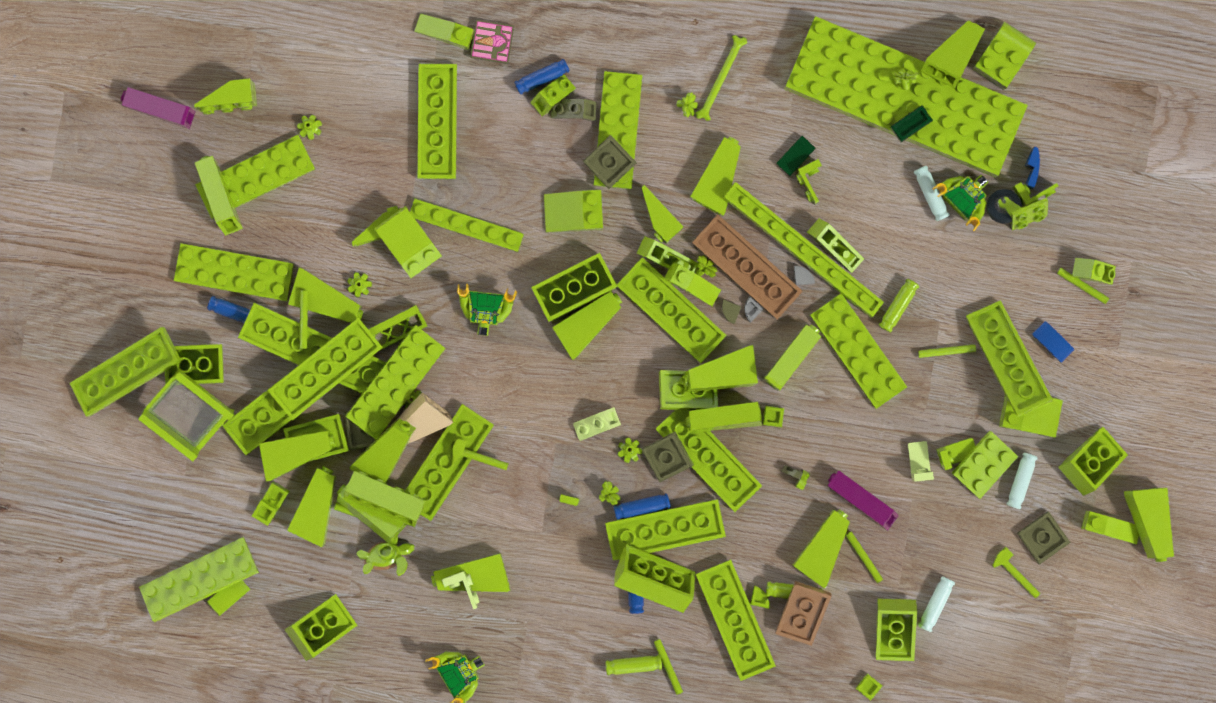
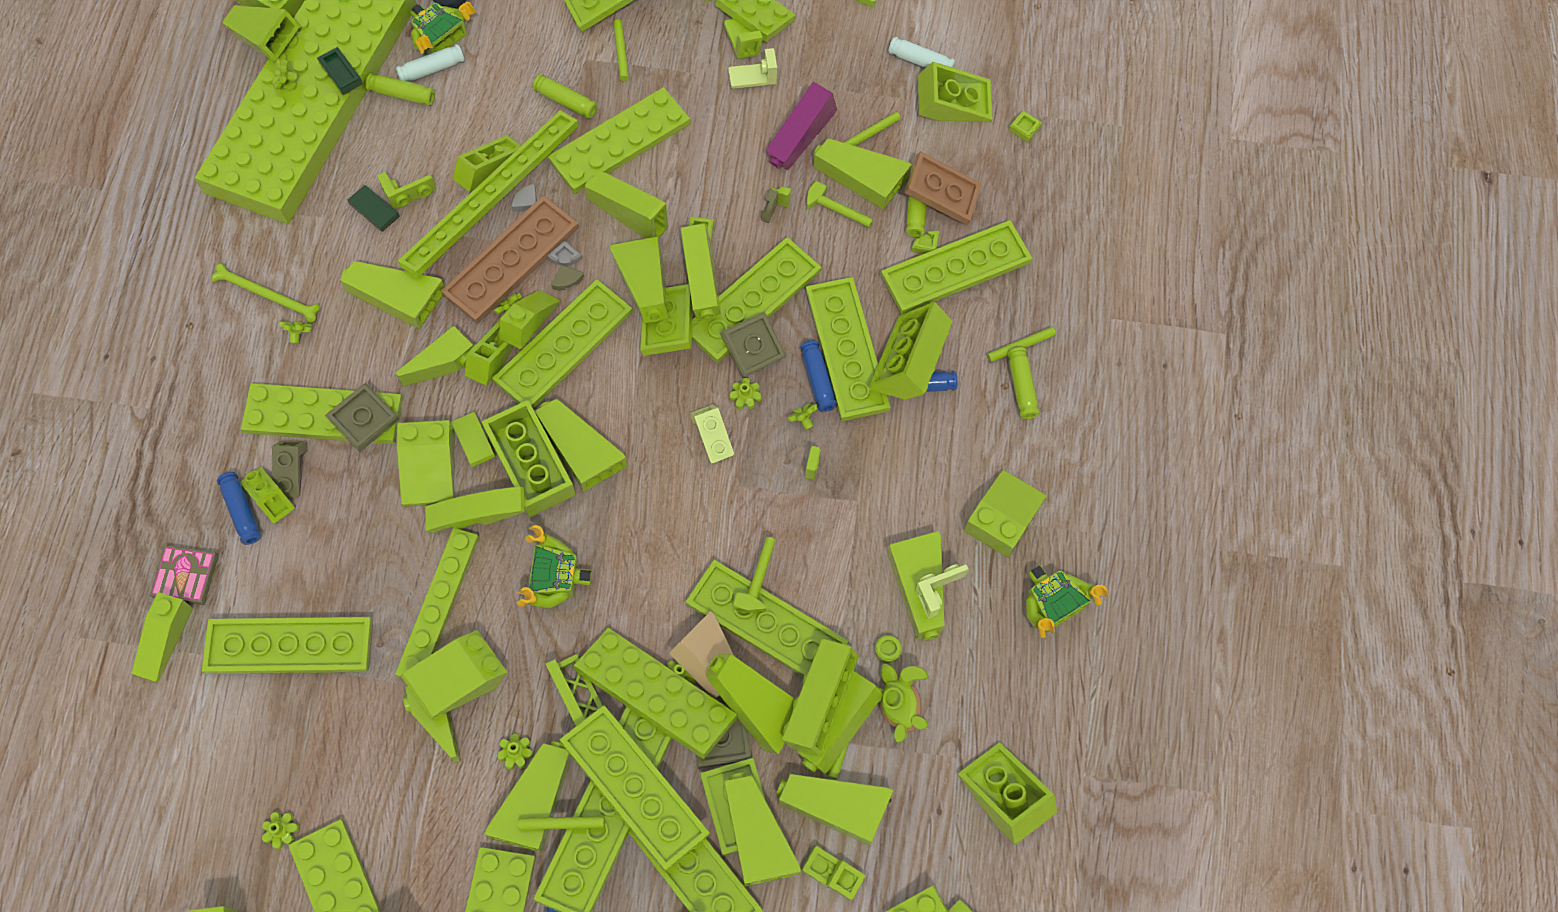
camera: 90 degrees left, 20 degrees down
(426, 549) = (888, 649): none -> lime tile
(528, 643) = (1004, 513): none -> lime slope
(533, 249) = (475, 508): none -> lime slope
(593, 244) = (473, 439): none -> lime slope
(803, 510) = (816, 196): none -> lime piece
(906, 170) = (400, 89): none -> lime axle

